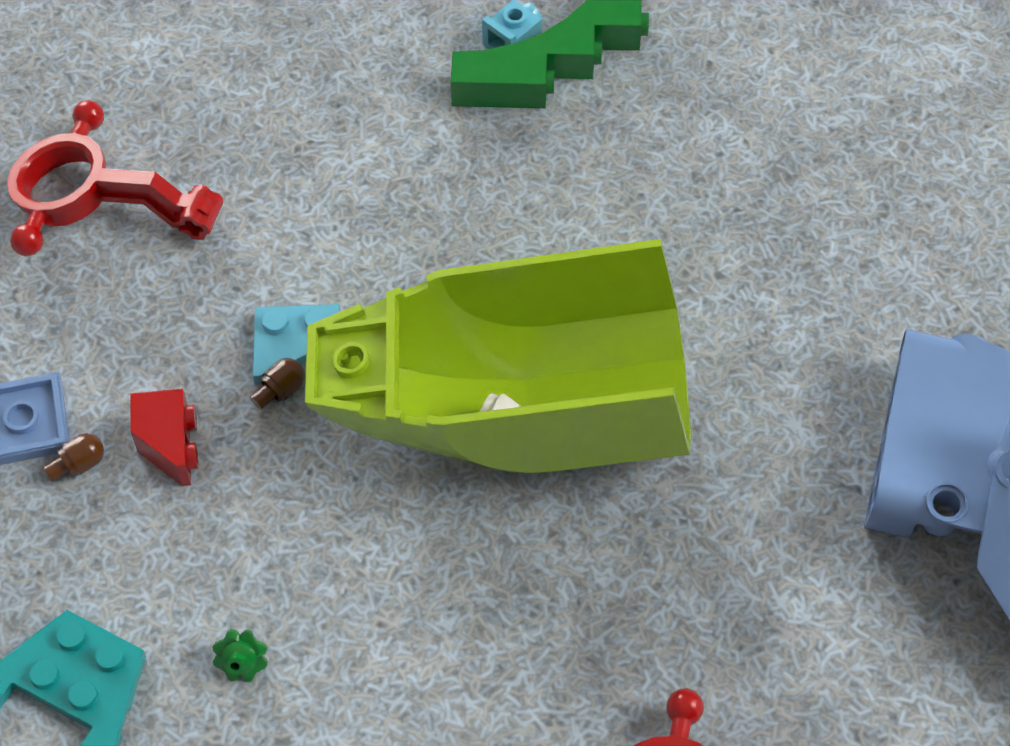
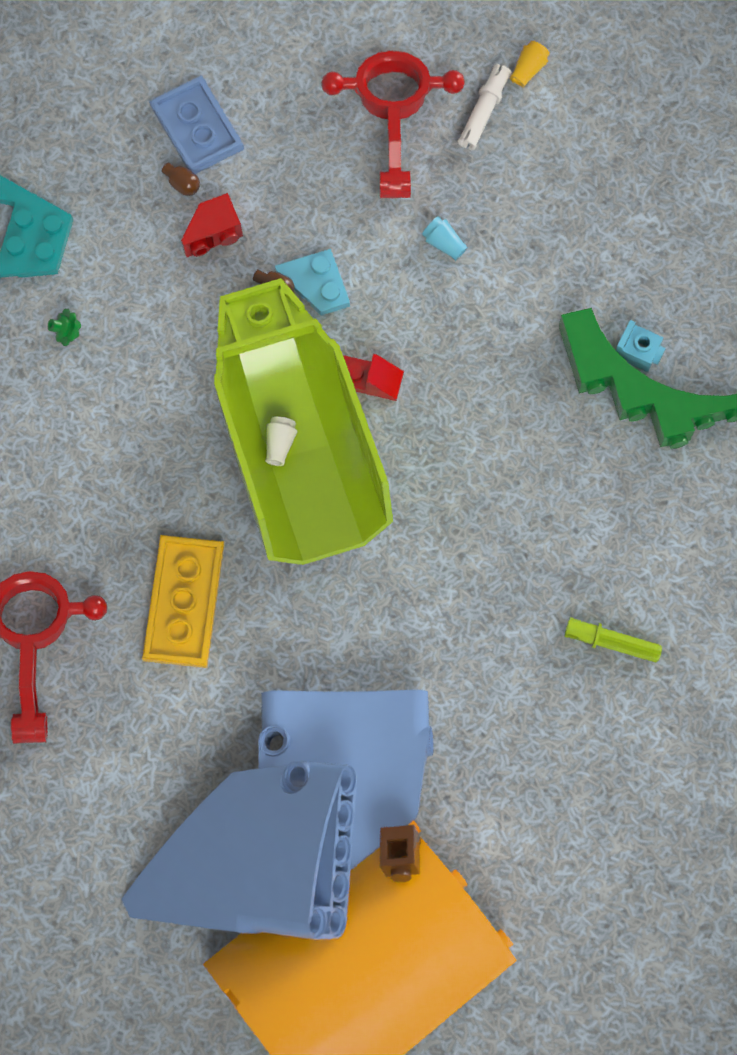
camera: 75 degrees right, 15 degrees up
(95, 40) = (530, 62): none -> yellow cone
(120, 91) = (489, 95): none -> white pin
(290, 184) = (443, 237): none -> medium azure cone
(697, 602) = (183, 601): none -> yellow tile
(862, 159) = (612, 640): none -> lime axle

